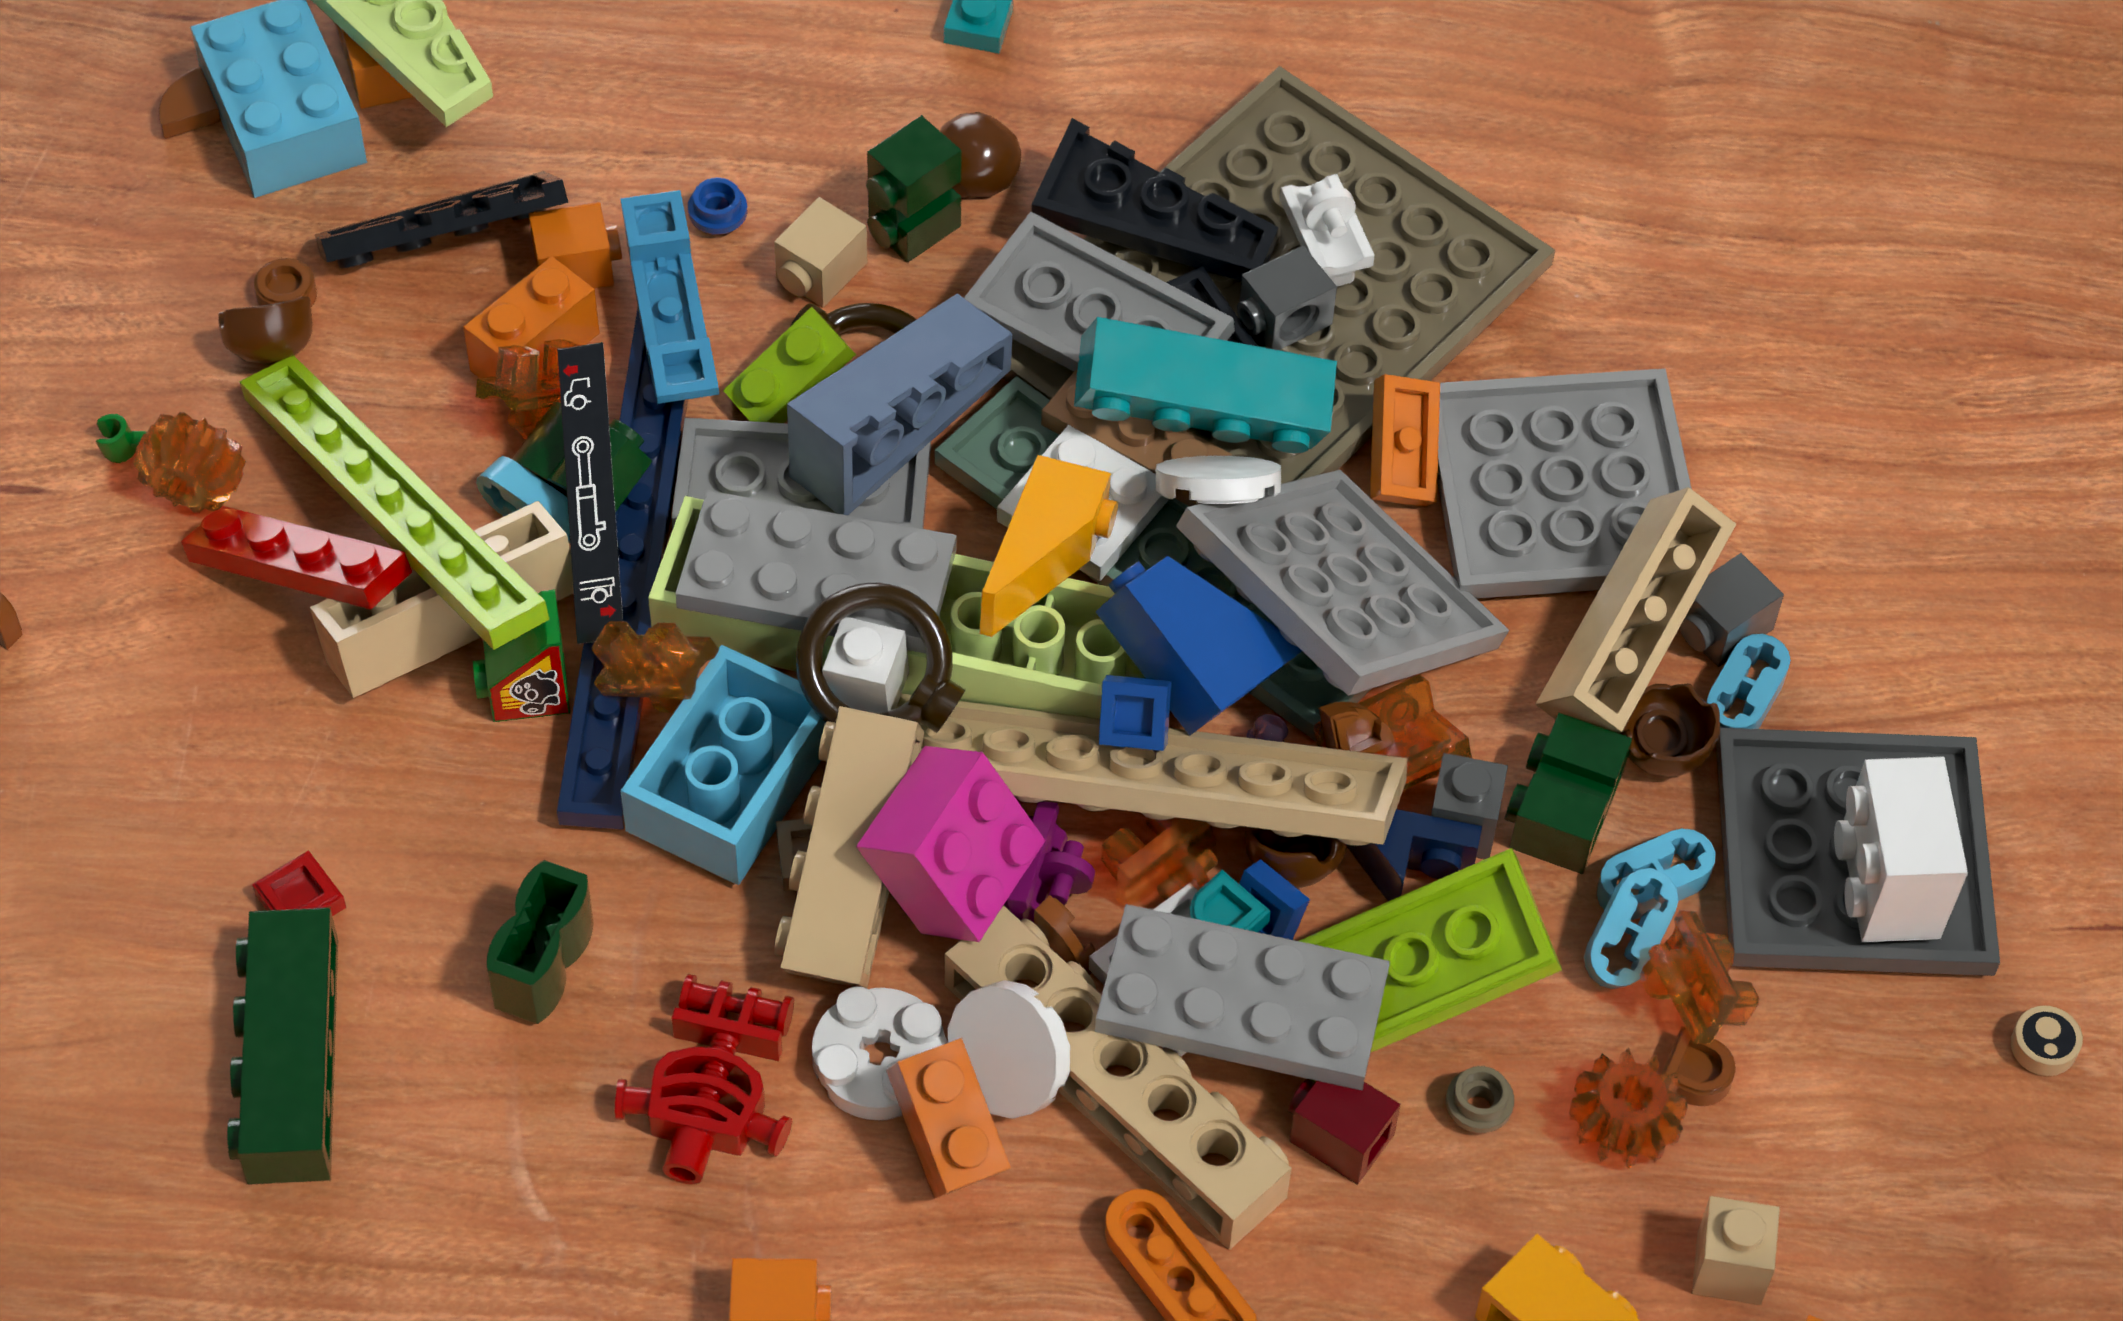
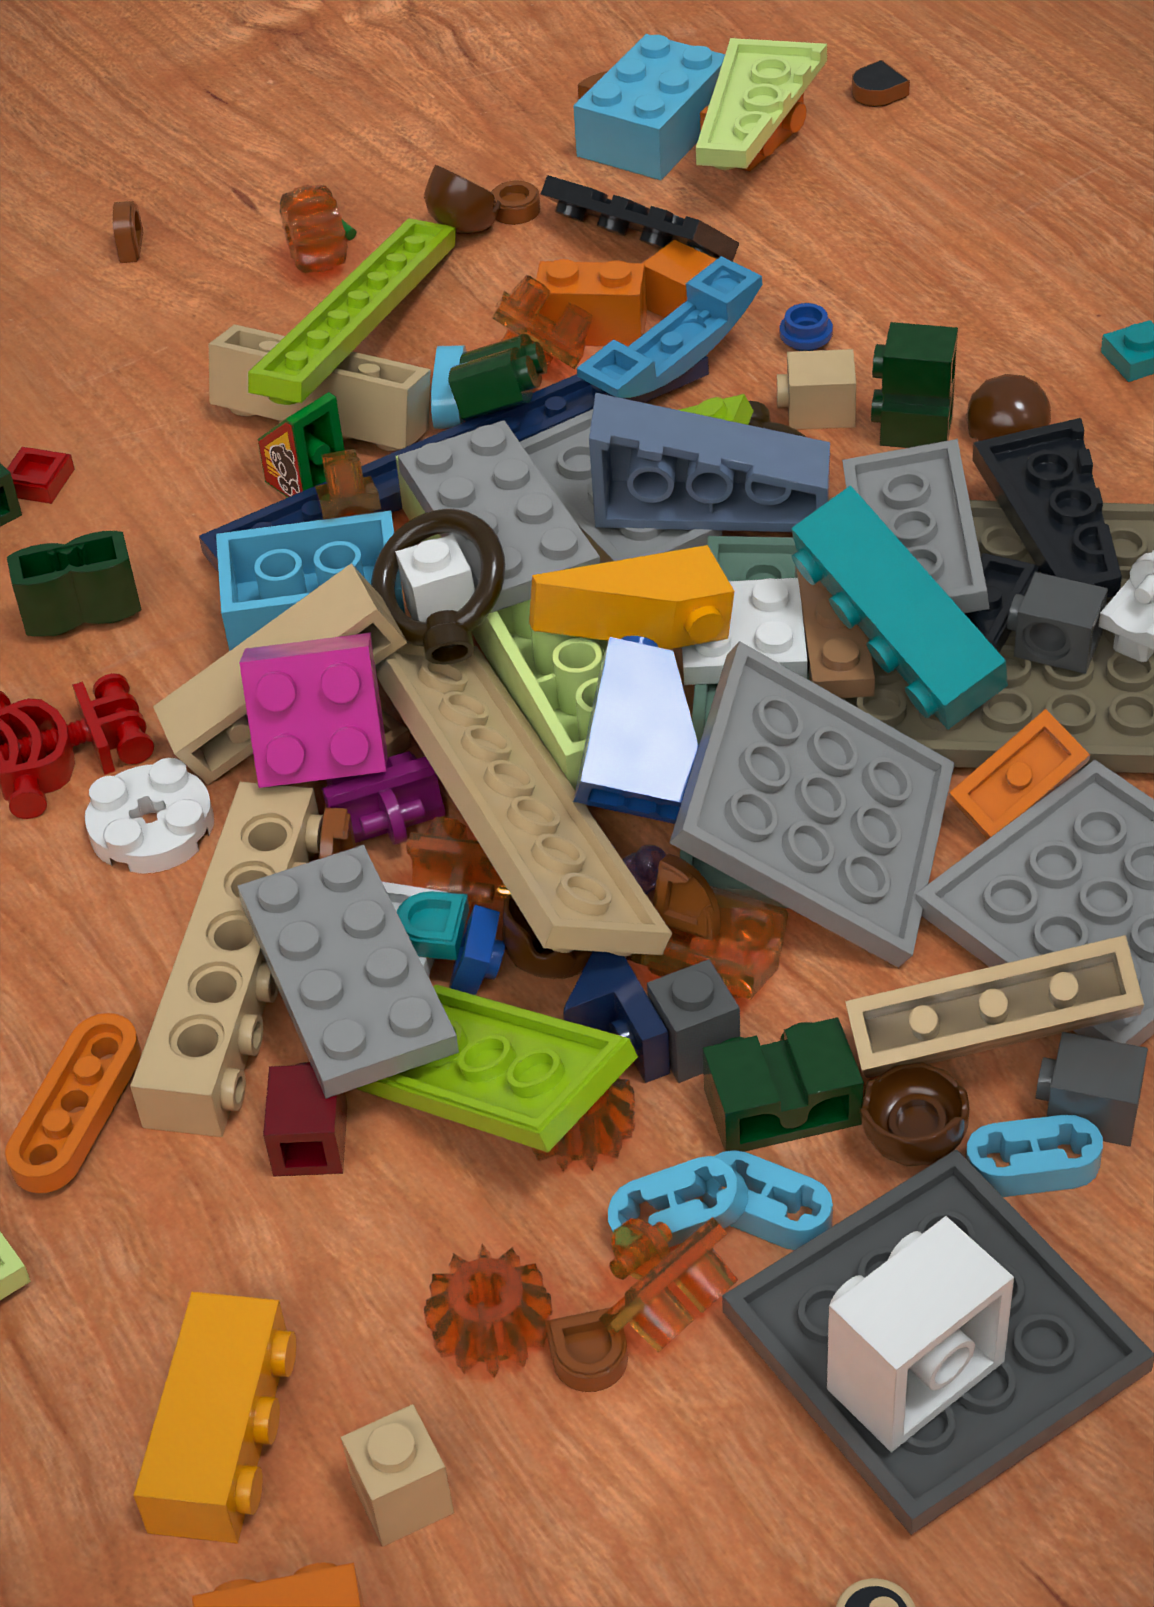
camera: 60 degrees right, 10 degrees down
(297, 557) = (277, 301): red plate -> none
(589, 489) = (456, 377): black sticker -> none
(948, 1118) = (92, 866): orange brick -> none
(1013, 1047) = (188, 868): white tile -> none
(1135, 712) = (540, 743): blue plate -> none
(1219, 478) = (809, 660): white tile -> none
(1484, 1083) = (413, 1188): dark tan plate -> none

